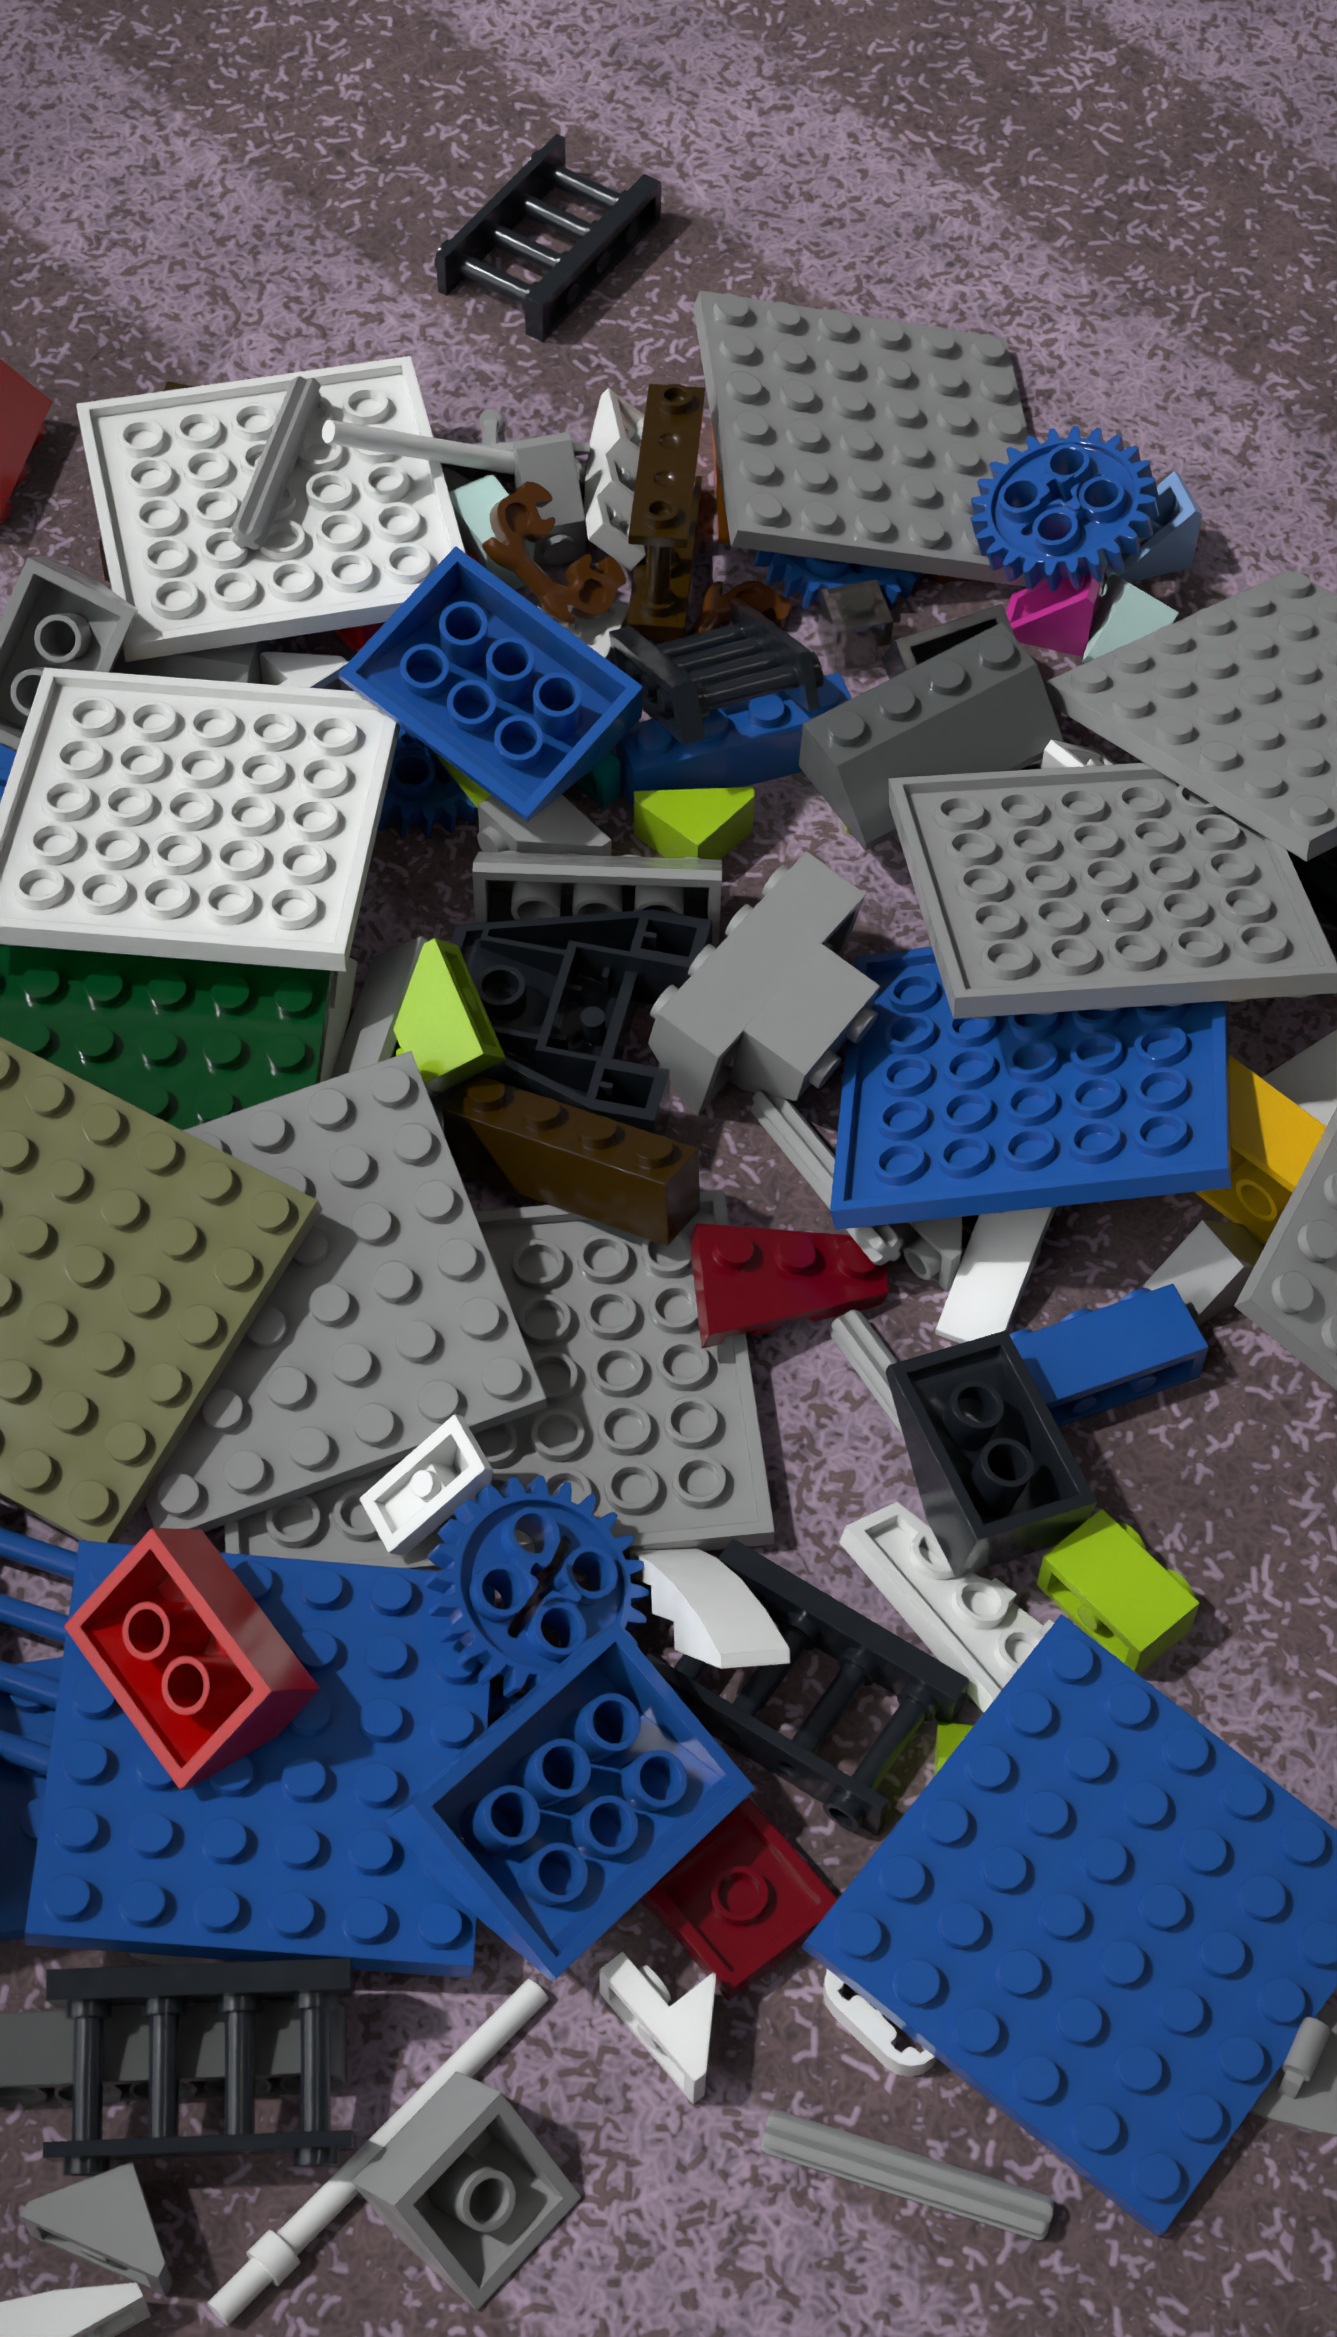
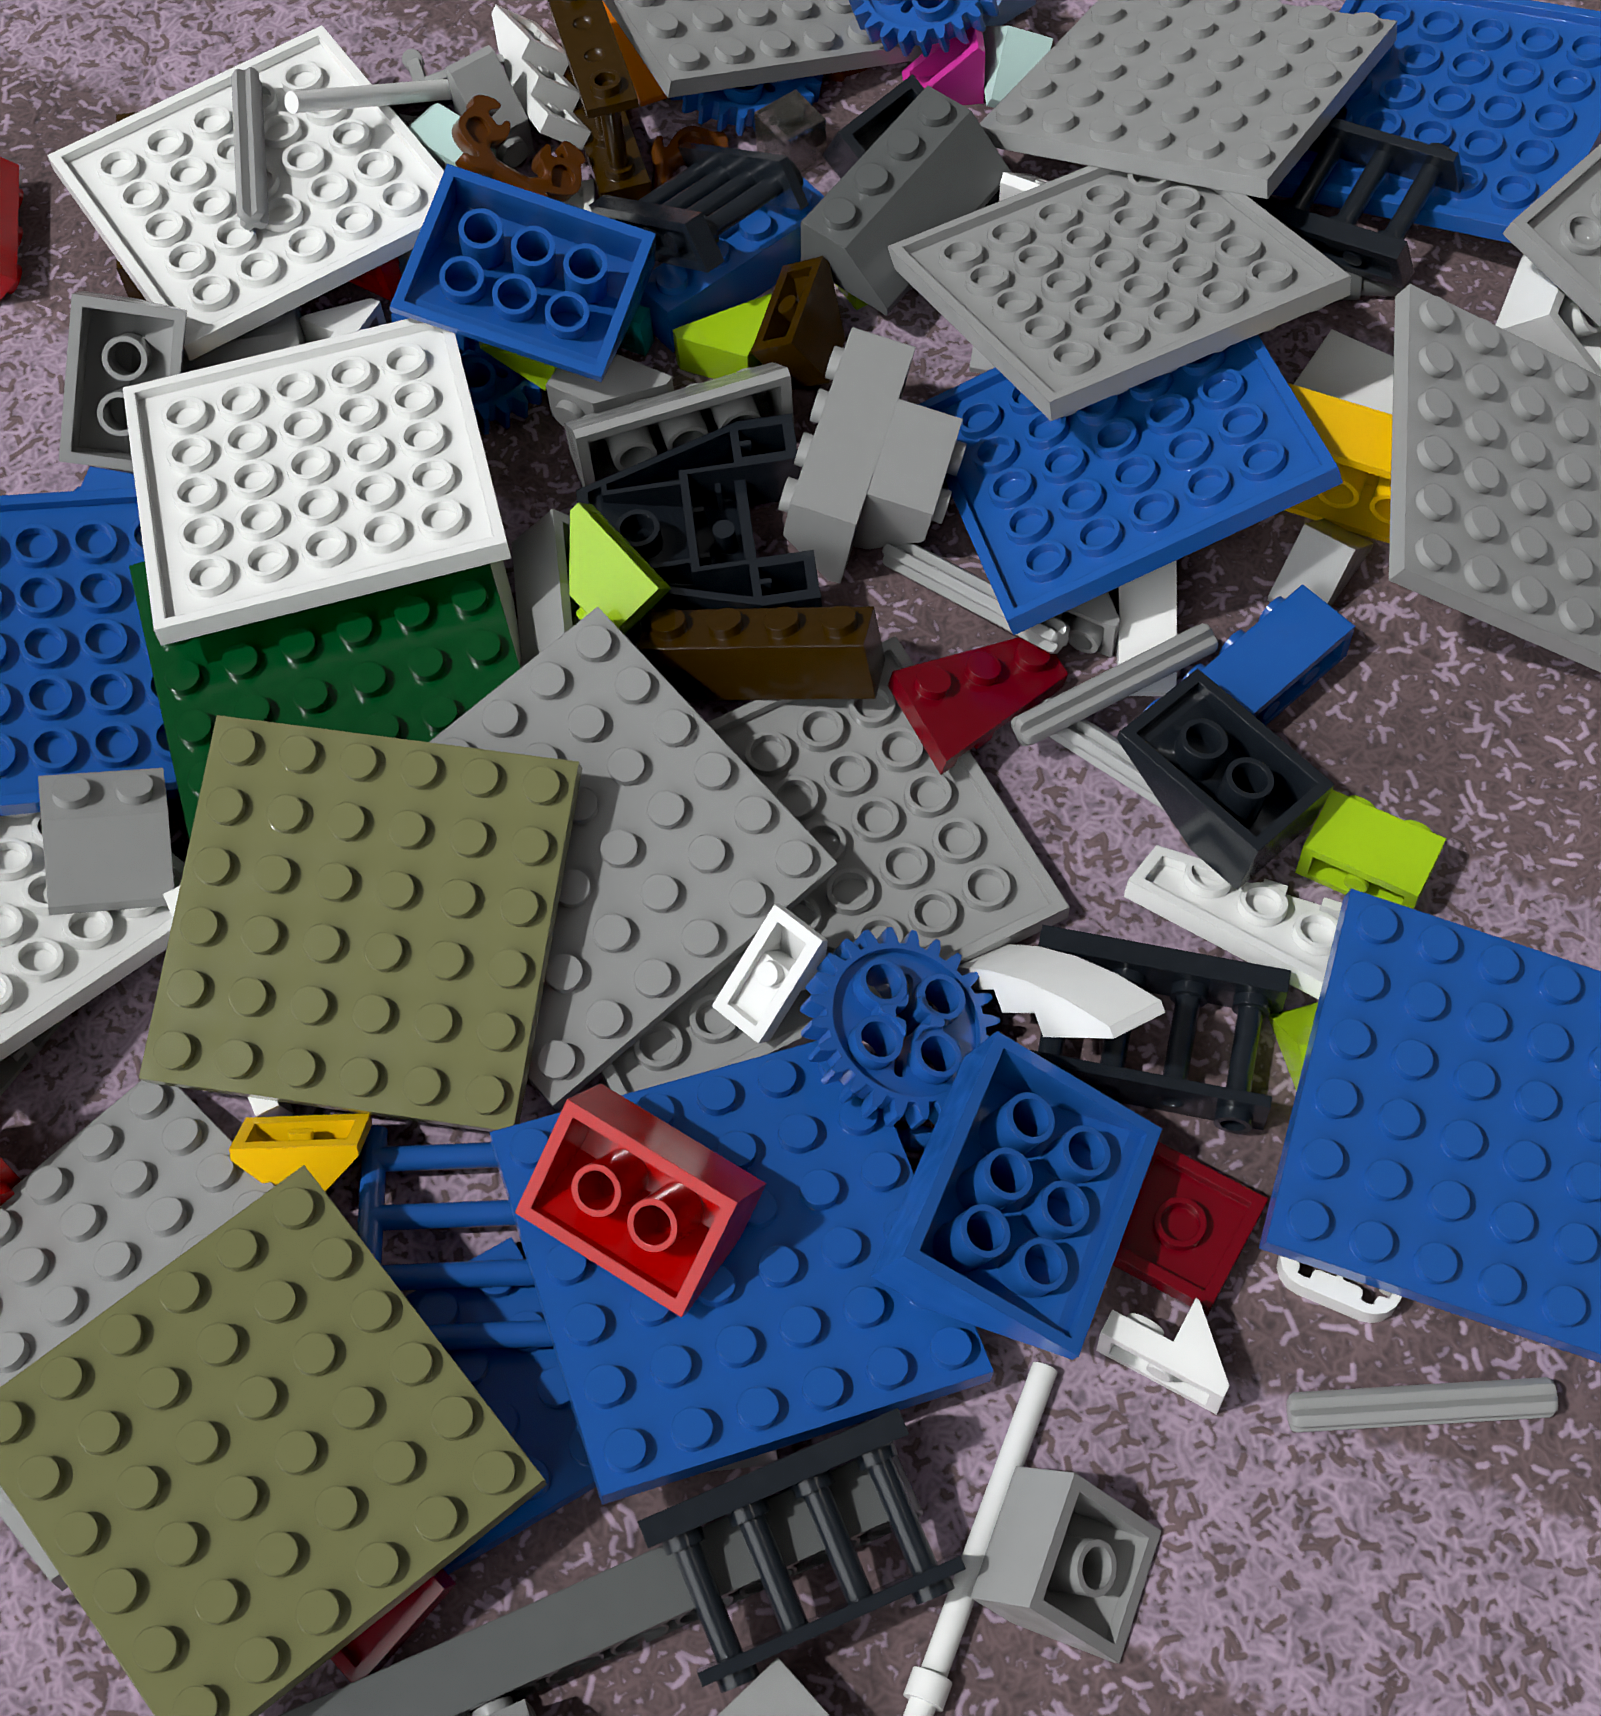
camera: 15 degrees left, 5 degrees up
(769, 827) = (801, 323): none -> dark brown slope
(927, 1319) = (1114, 684): none -> light grey axle

